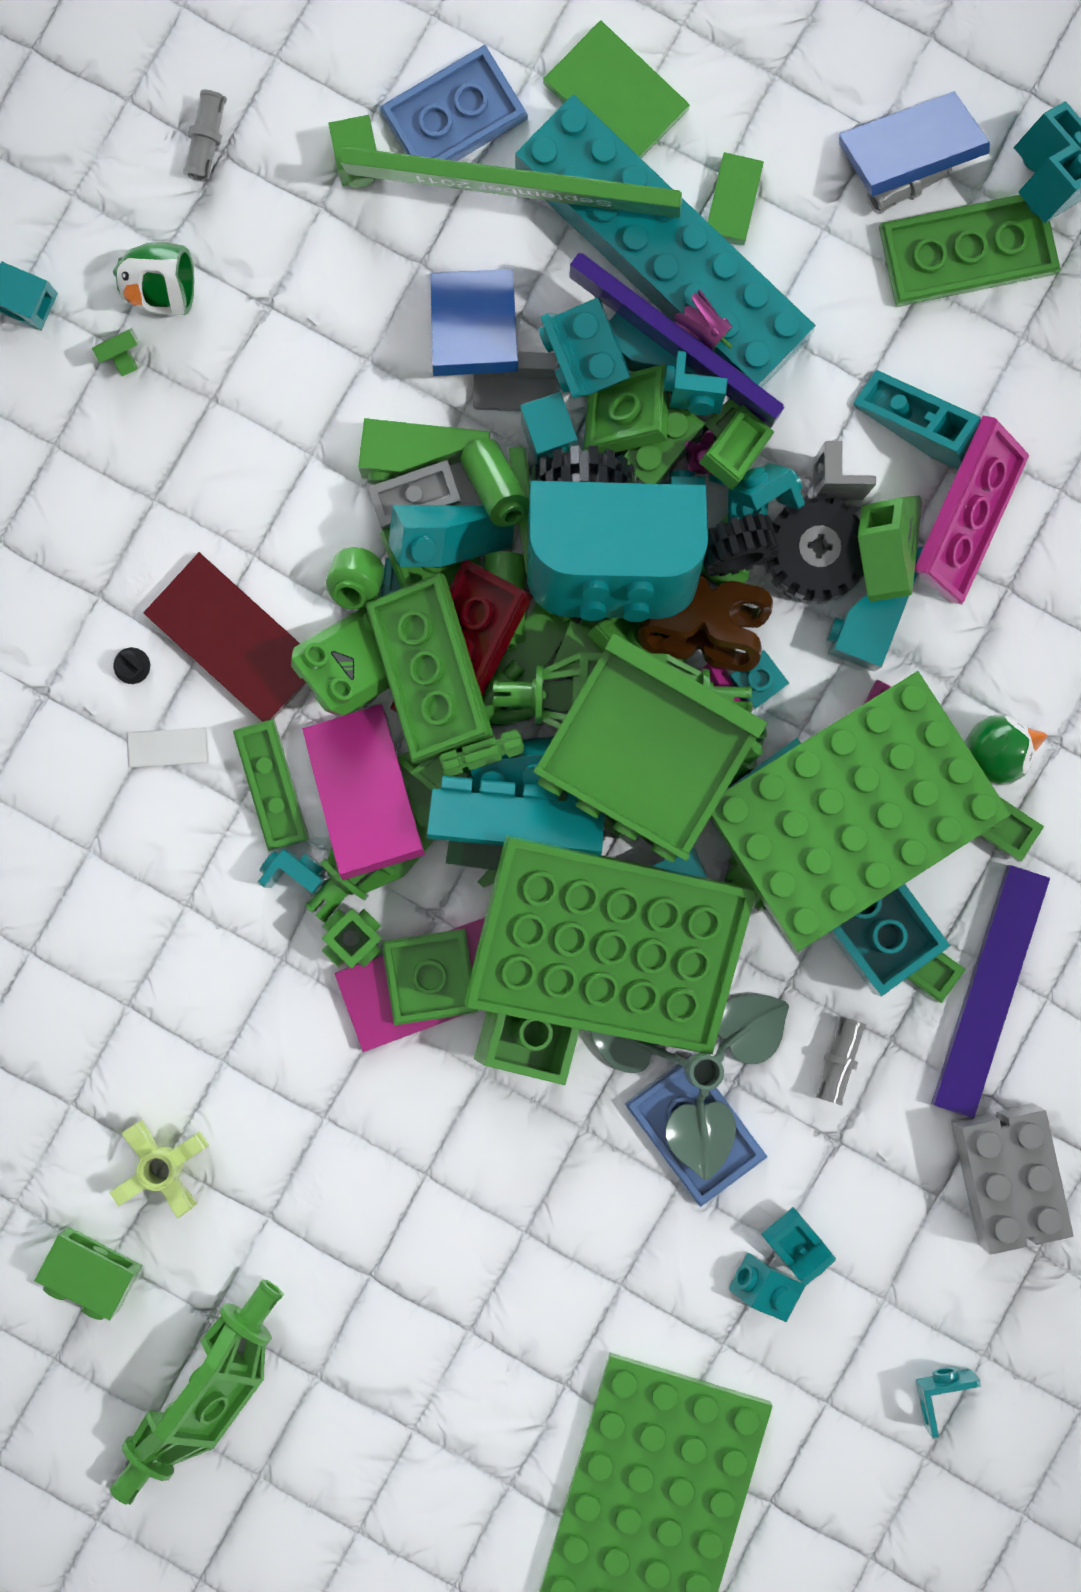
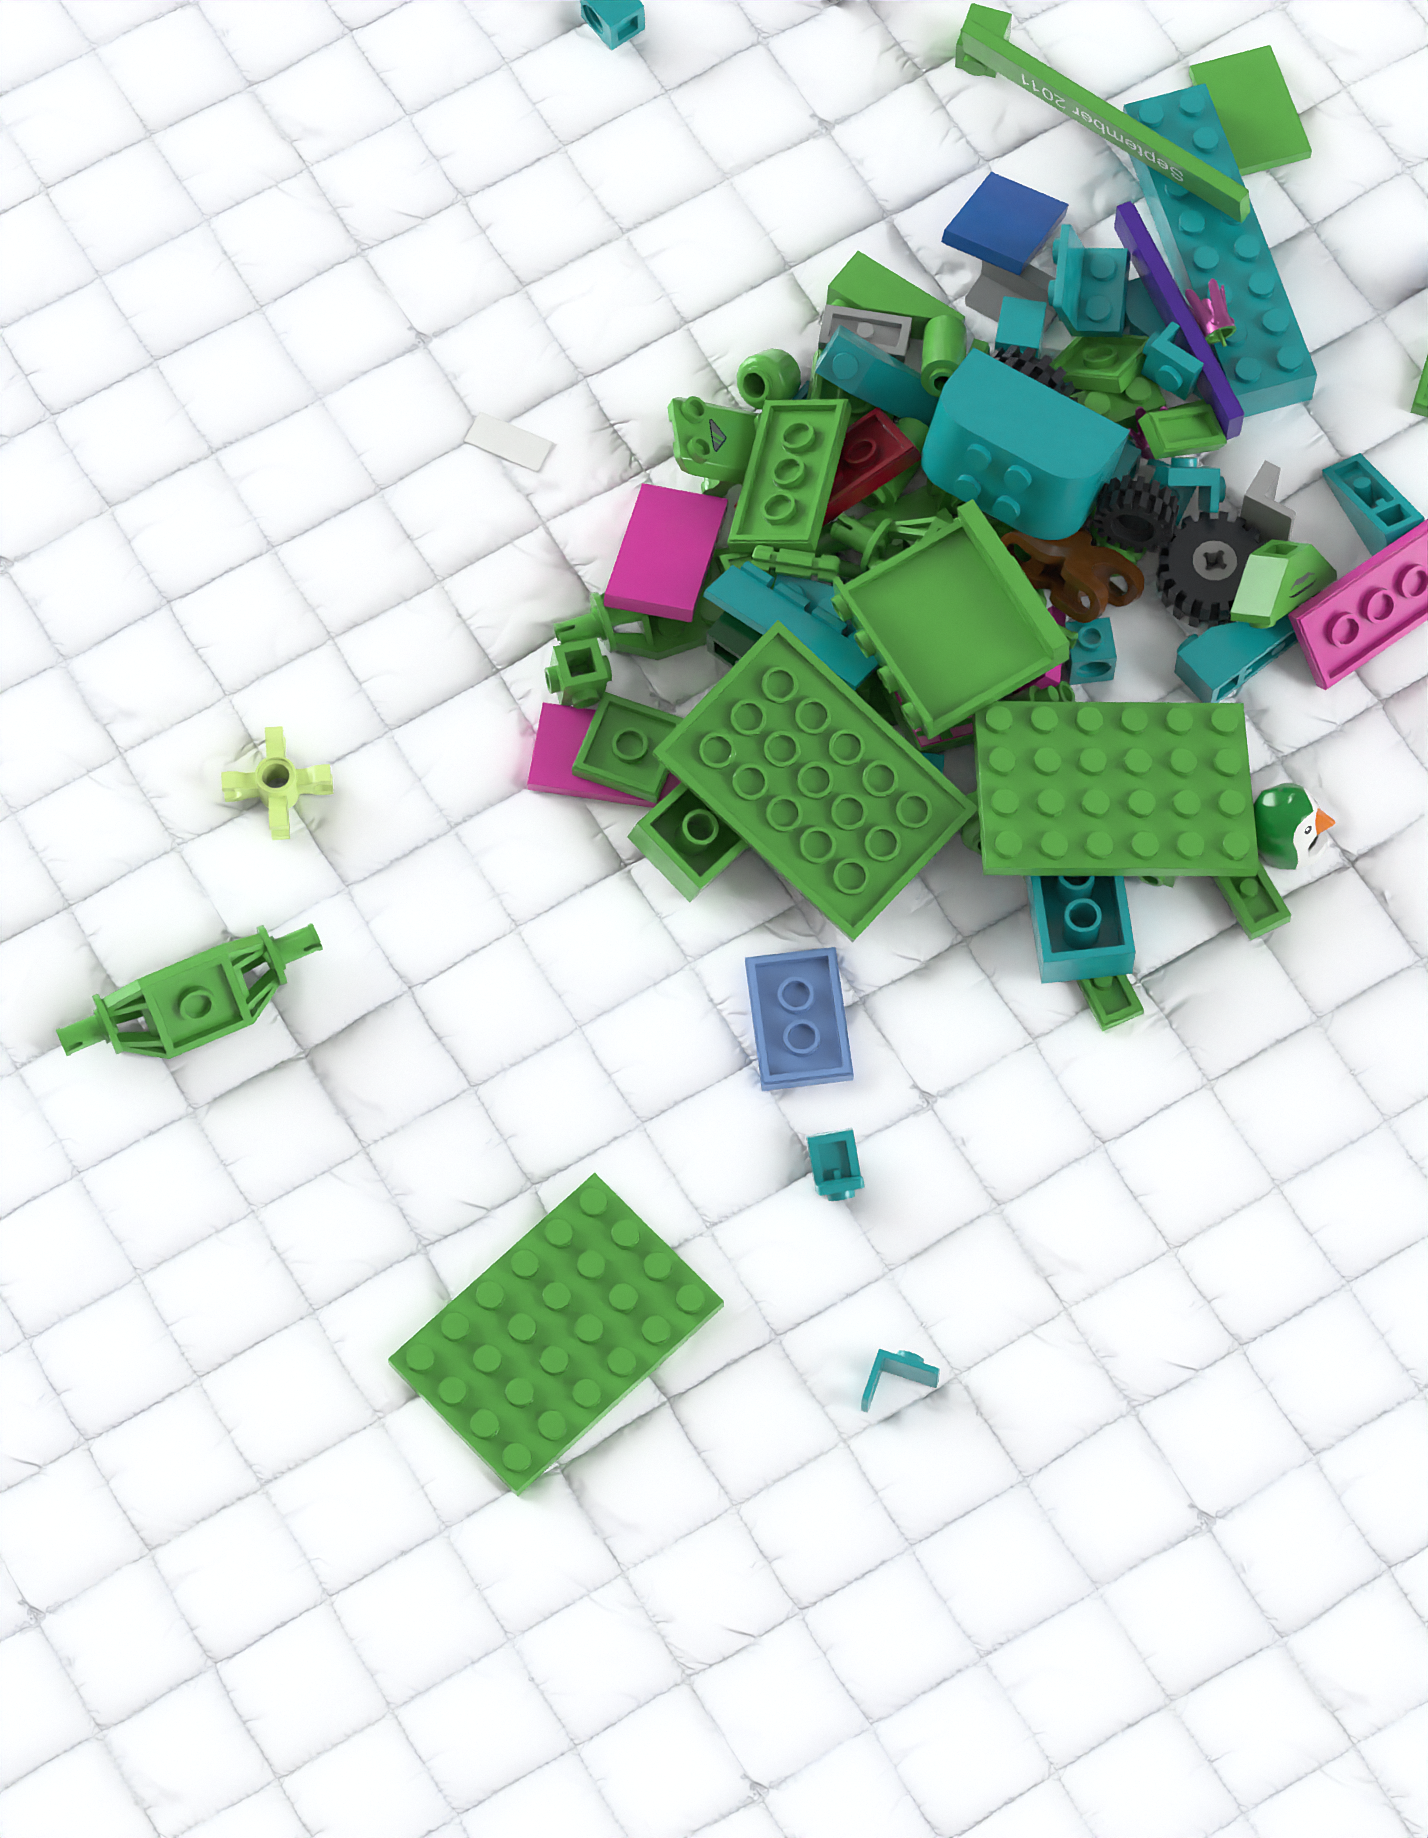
camera: 25 degrees right, 20 degrees down
(87, 1274) = (154, 838): bright green brick -> none
(117, 348) = (671, 93): bright green tile -> none
(131, 665) = (519, 355): black piece -> none
(157, 278) = (742, 53): piece -> none
(229, 637) = (622, 377): dark red tile -> none
(271, 784) = (584, 515): bright green tile -> none
(303, 870) = (556, 583): teal bracket -> none
(455, 109) = (1098, 52): medium blue tile -> none
(705, 1133) = (804, 1016): sand green plant -> none
(735, 196) = (1310, 246): bright green tile -> none
(766, 1288) = (783, 1192): teal bracket -> none
(841, 1060) = (974, 1025): light grey pin -> none
(990, 991) = (1156, 1042): dark purple tile -> none
(1012, 1178) = (1078, 1210): light grey piece -> none

